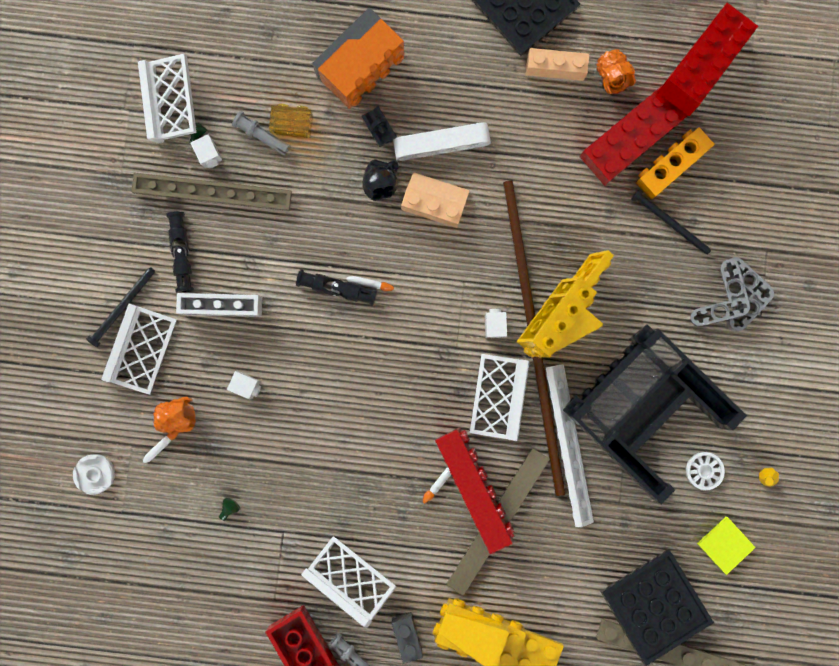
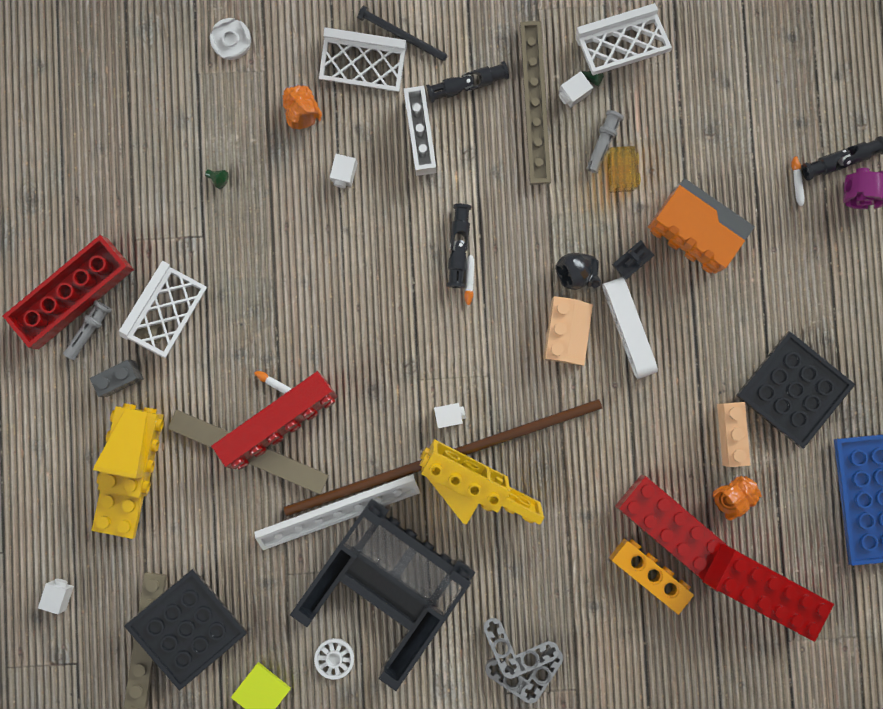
camera: 85 degrees right, 0 degrees up
(159, 447) = (268, 98): white piece -> none
(517, 398) = (370, 450): white fence -> none
(638, 196) = (609, 543): black bar -> none

